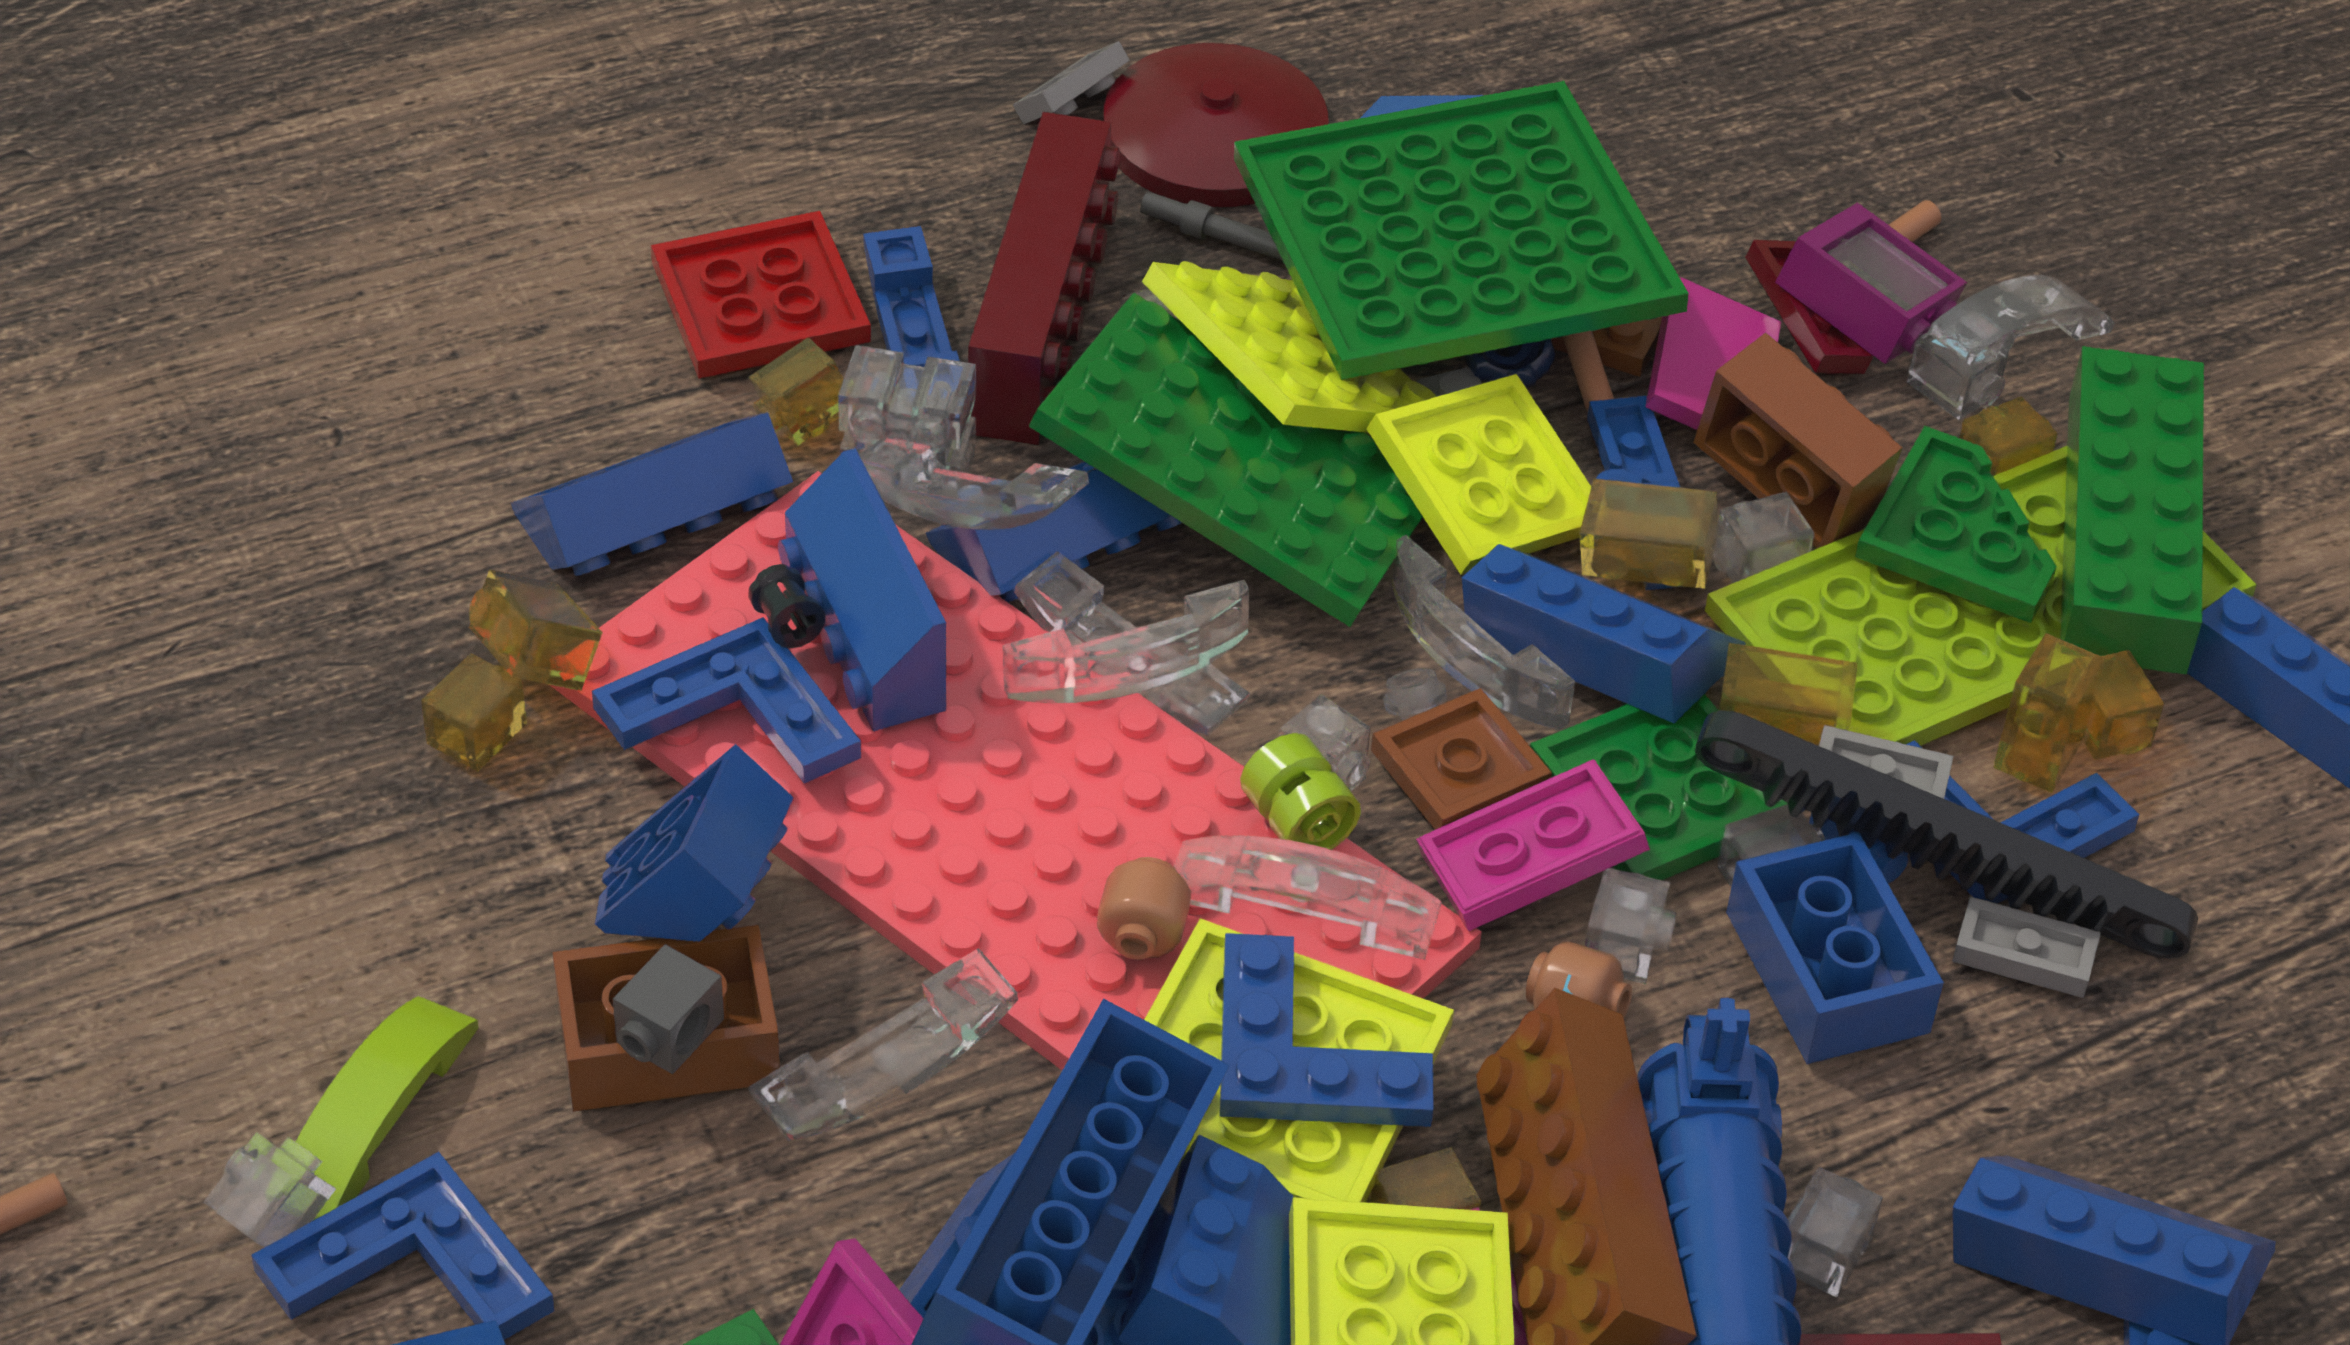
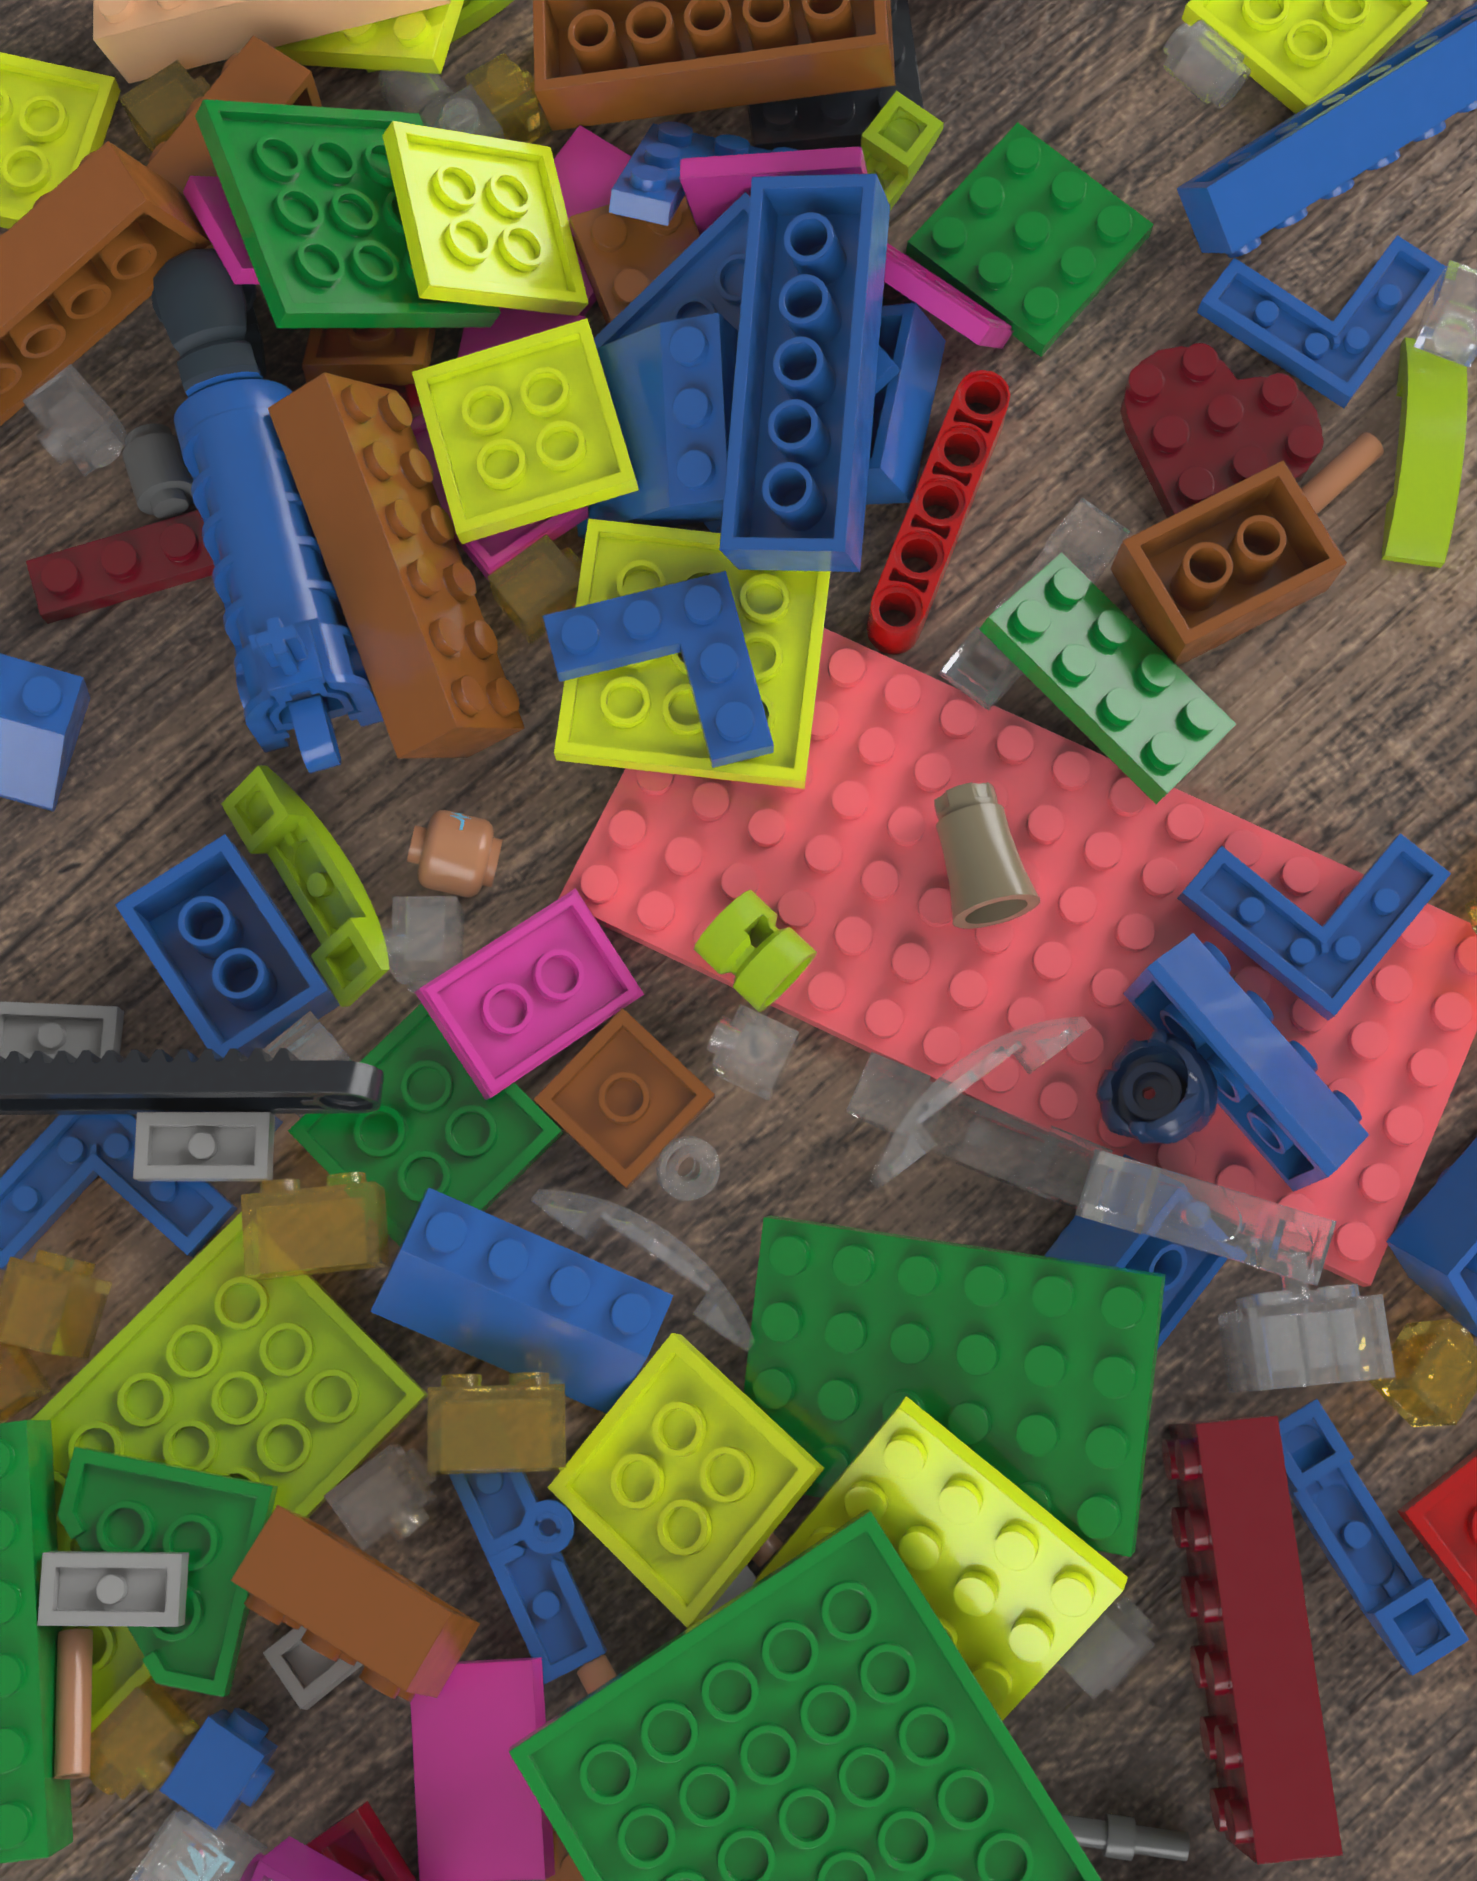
camera: 165 degrees right, 30 degrees up
(497, 1099) = (1342, 471): none -> nougat piece
(599, 1177) = (1208, 430): none -> dark red plate
(668, 1009) = (1219, 499): dark grey brick -> none
(696, 855) = (1270, 688): blue wedge -> none
(792, 603) = (1316, 1014): black bush -> none
(845, 960) = (1107, 677): none -> plate
(964, 586) = (1182, 1086): none -> dark blue hair
(970, 1135) = (944, 486): none -> red beam
(1046, 811) = (981, 858): none -> dark tan plant
(1144, 908) = (859, 783): nougat head -> none
(1313, 882) = (724, 860): clear slope -> none
(1704, 928) = (318, 876): none -> lime slope
(1831, 1230) = (192, 667): clear brick -> none
(1936, 401) = (222, 1767): none -> blue brick
(2008, 492) = (113, 1589): none -> light grey plate
(2056, 455) = (73, 1704): none -> nougat piece

